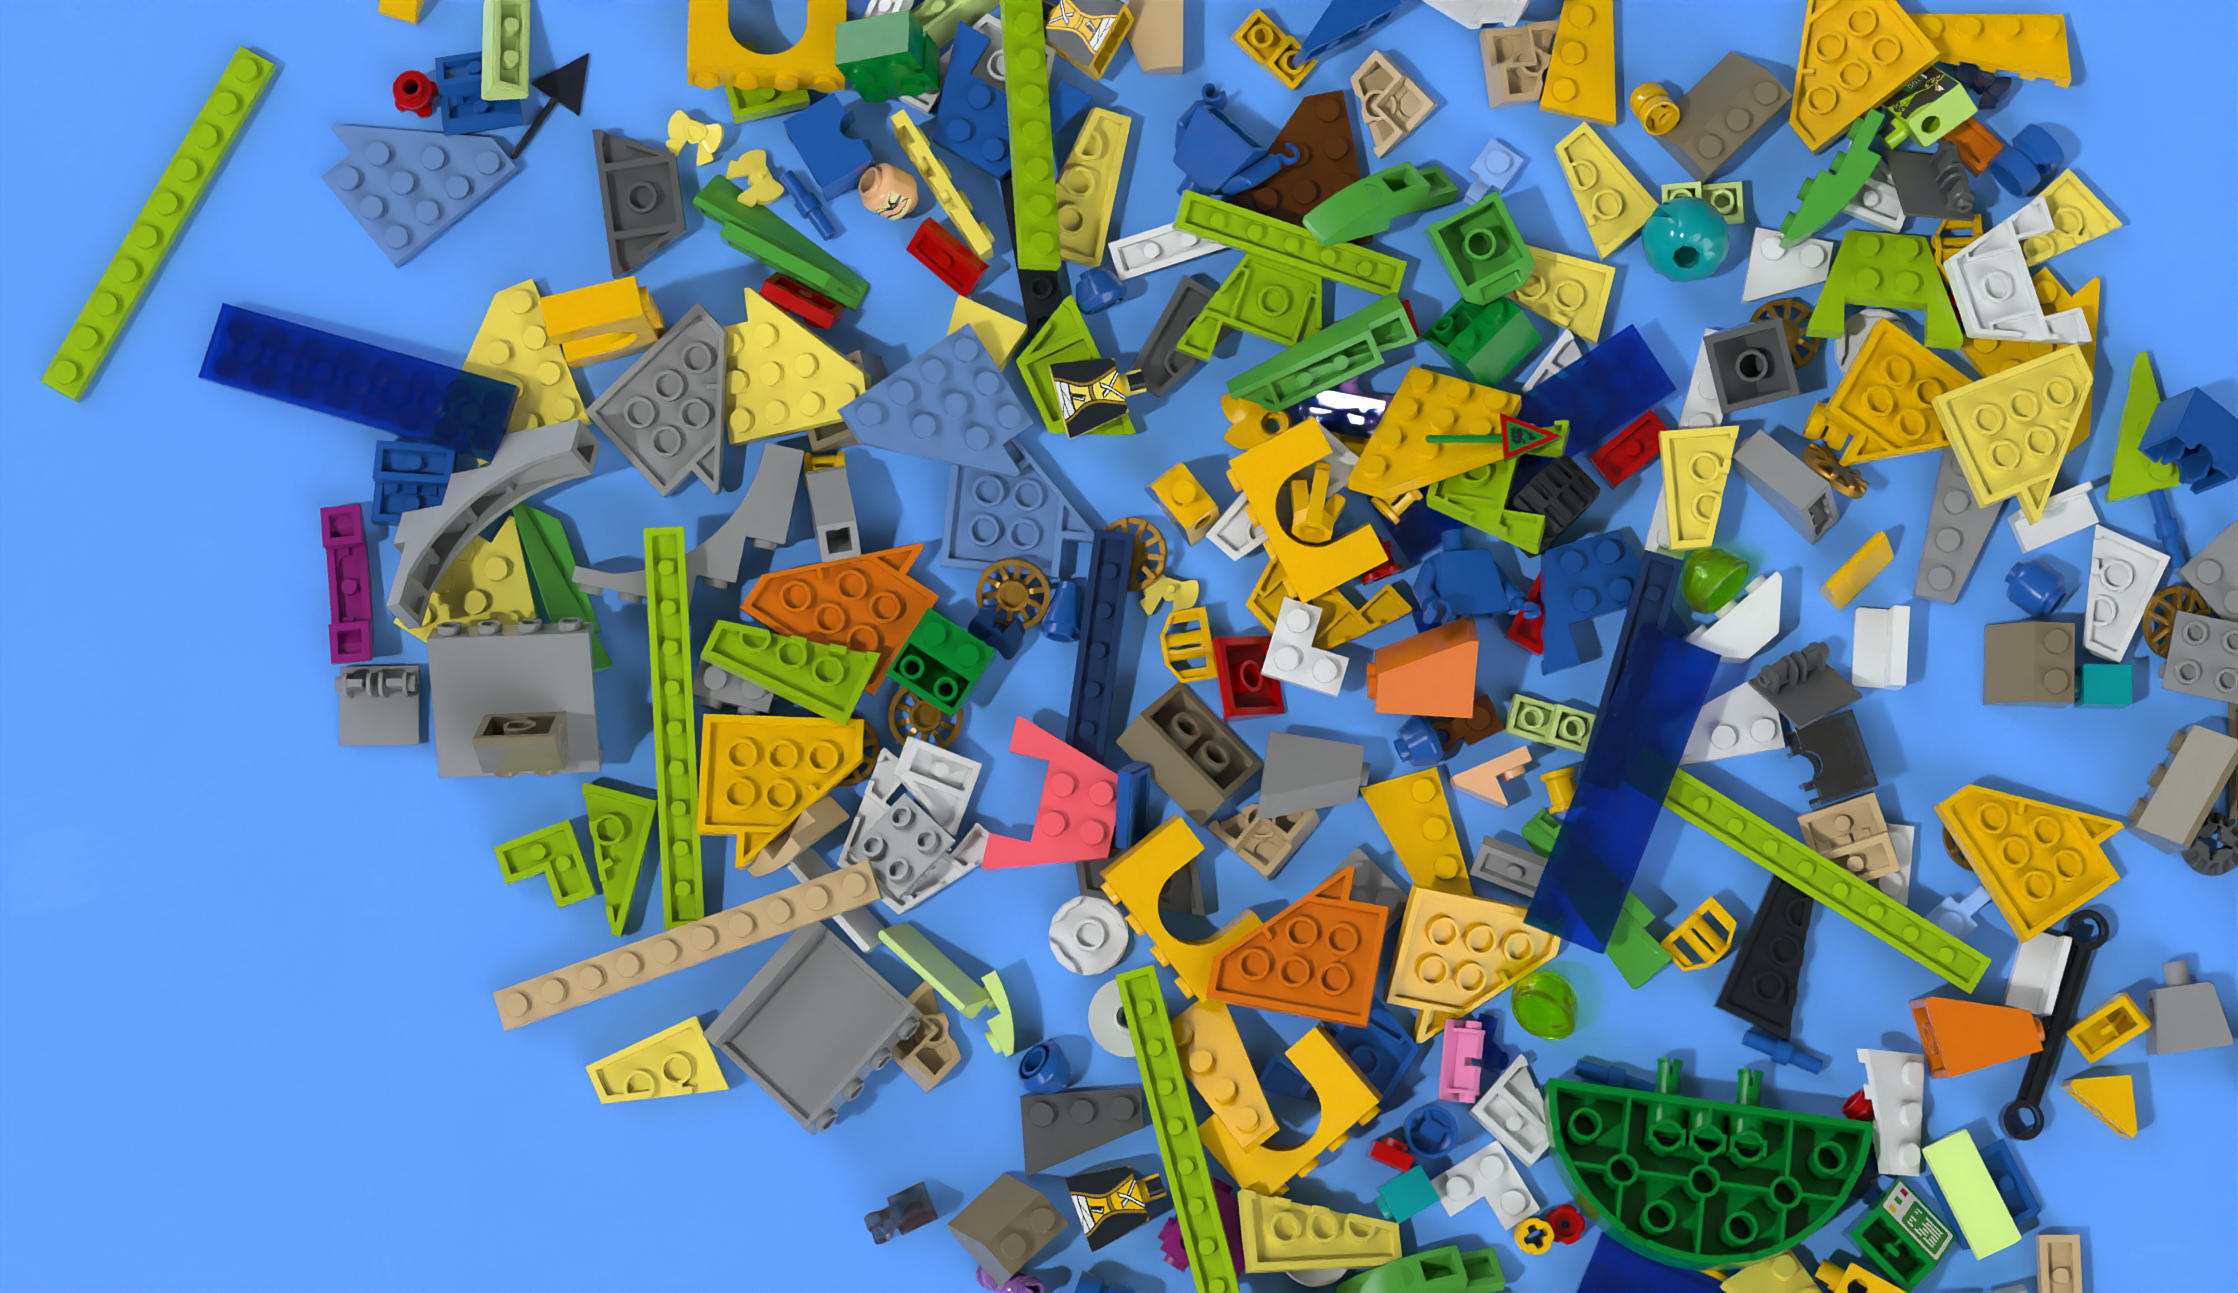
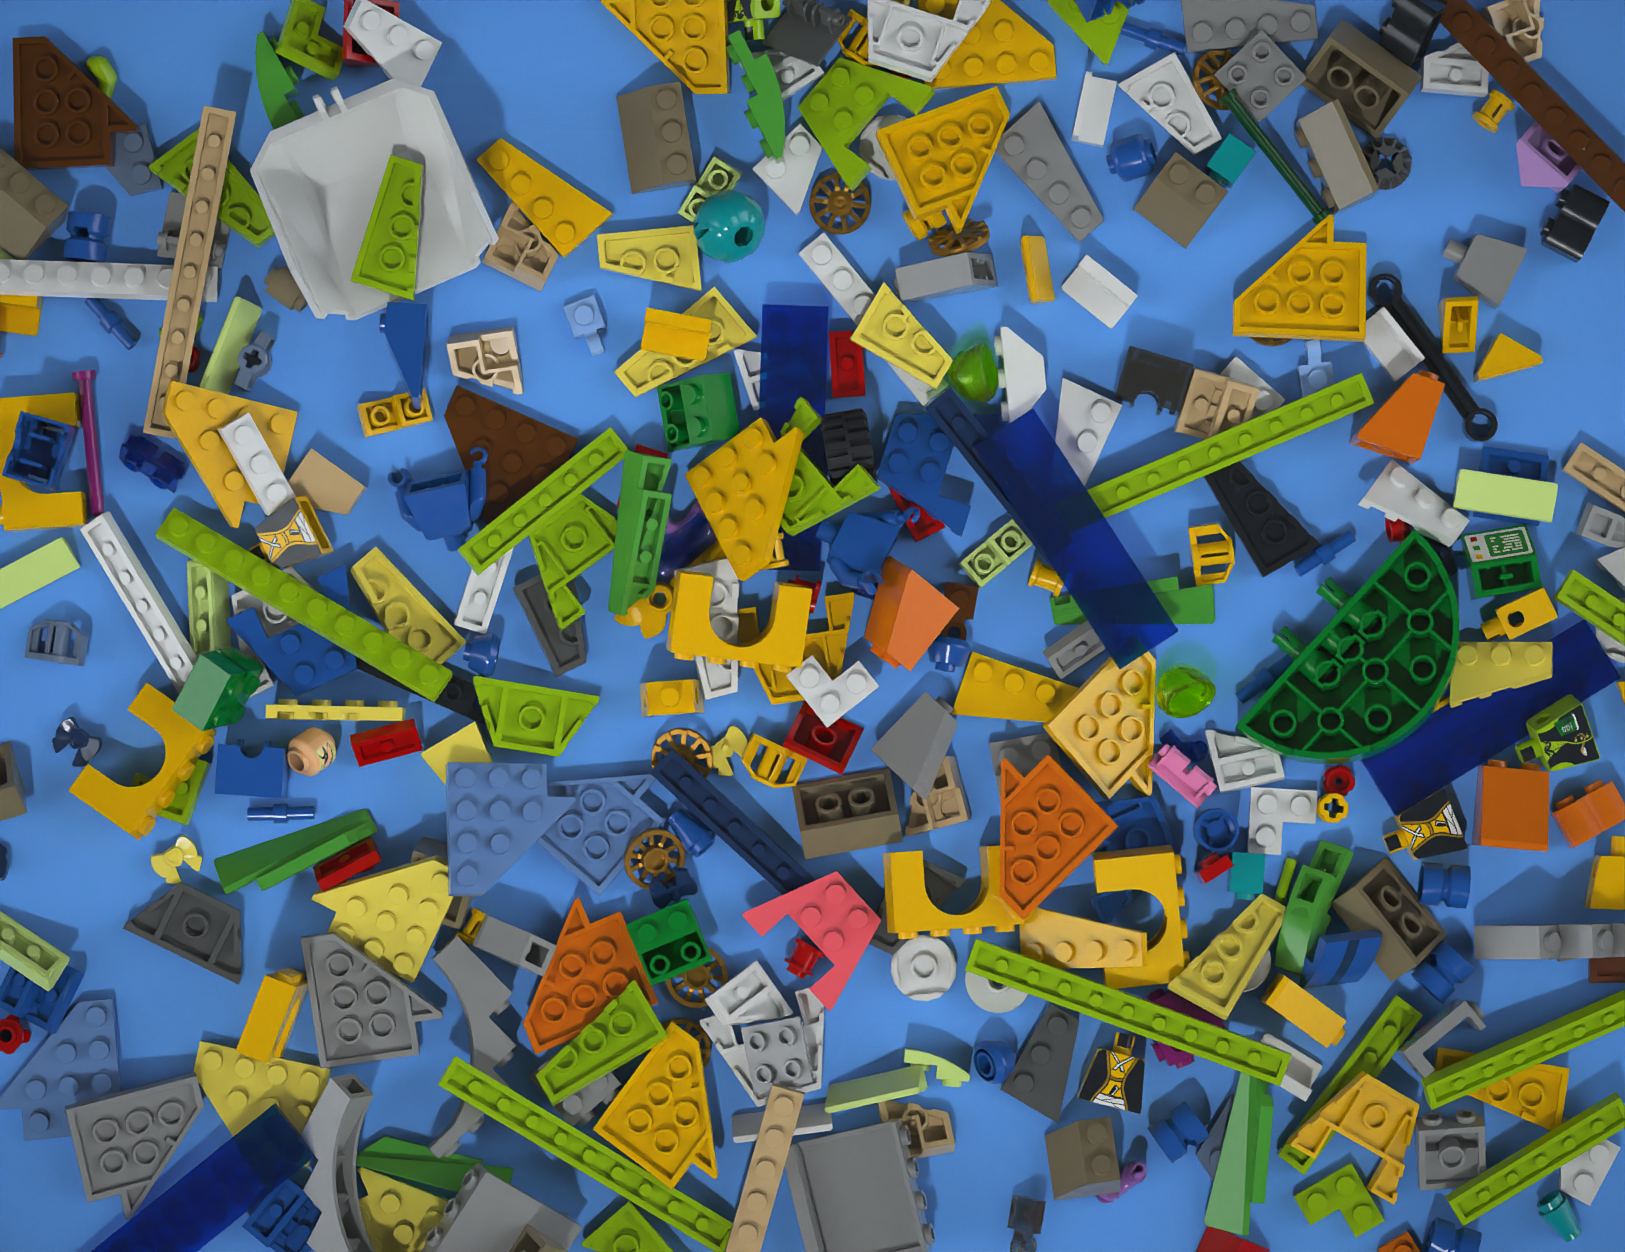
camera: 55 degrees left, 5 degrees up
(392, 274) = (131, 1136): none -> light grey wing
(564, 87) = (74, 927): black piece -> none
(763, 188) = (246, 835): light yellow piece -> none
(809, 828) = (722, 1115): tan slope -> none
(1015, 808) = (803, 959): none -> red brick
(1092, 393) = (554, 709): black torso -> none
(1132, 804) = (856, 877): blue tile -> none
(1311, 518) = (748, 621): yellow rock -> none
(1373, 201) = (554, 419): bright green slope -> none
(1427, 1239) = (1285, 880): none -> lime piece
(1482, 251) = (640, 372): bright green slope -> none
(1482, 780) = (1003, 627): light nougat slope -> none
(1516, 437) = (789, 443): piece -> none
(1554, 268) = (676, 334): none -> yellow panel
(1654, 108) = (621, 180): yellow wheel -> none
(1751, 364) = (846, 244): dark grey slope -> none
(1804, 686) = (1092, 364): dark grey hinge -> none
(2017, 427) = (1015, 94): light yellow wing -> none
(2140, 726) = (1275, 157): none -> dark green bar

